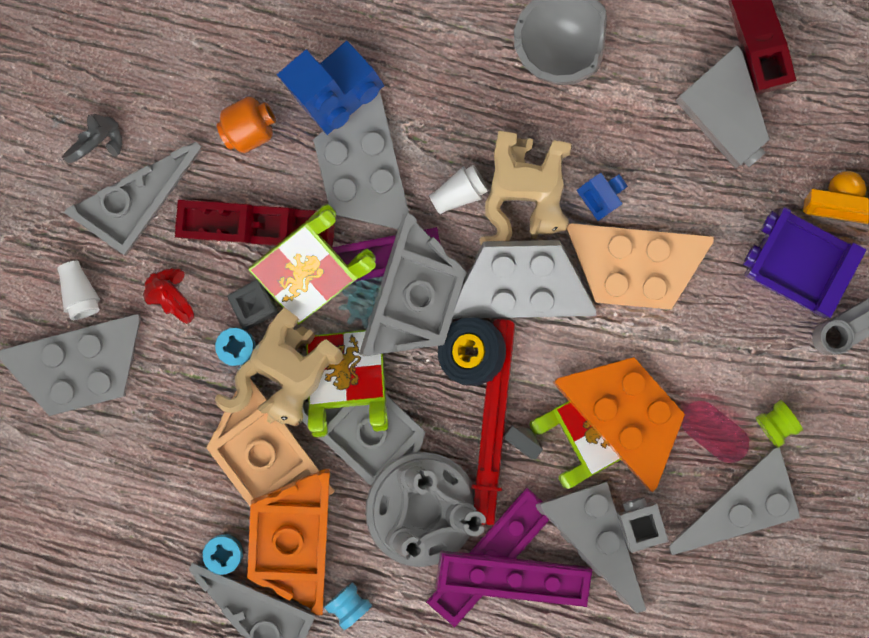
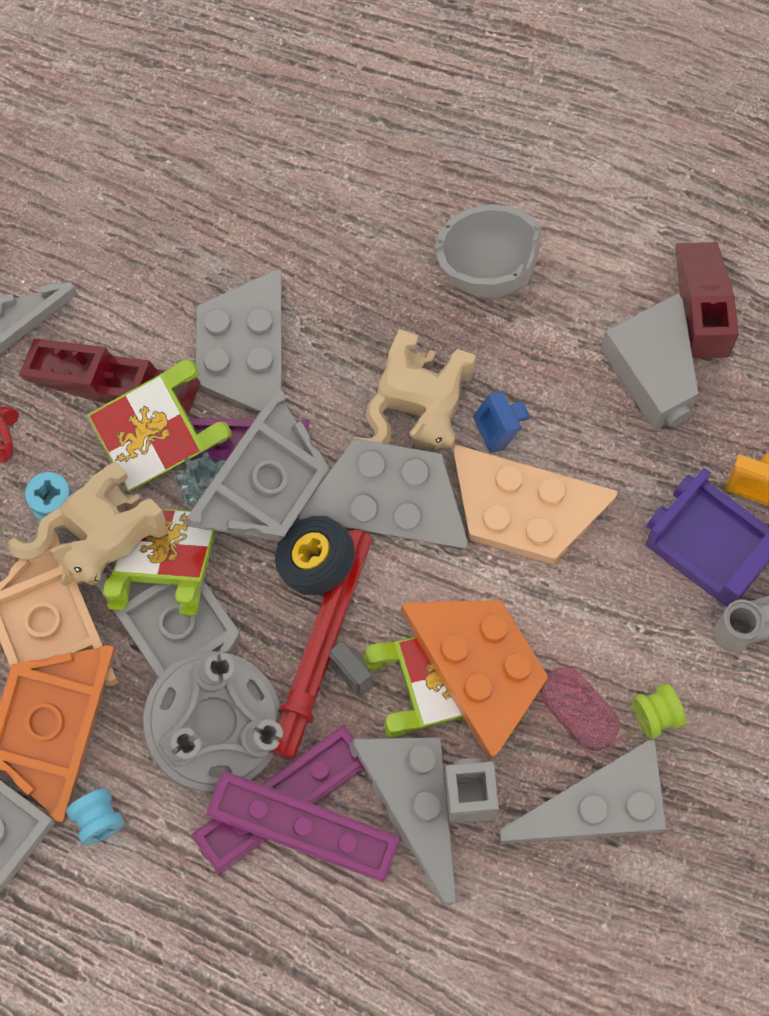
camera: 15 degrees right, 20 degrees down
(246, 124) = (128, 276): orange head -> none
(252, 304) = (81, 458): dark grey tile -> none
(333, 87) = (227, 254): blue brick -> none
(460, 189) = (342, 387): white cone -> none

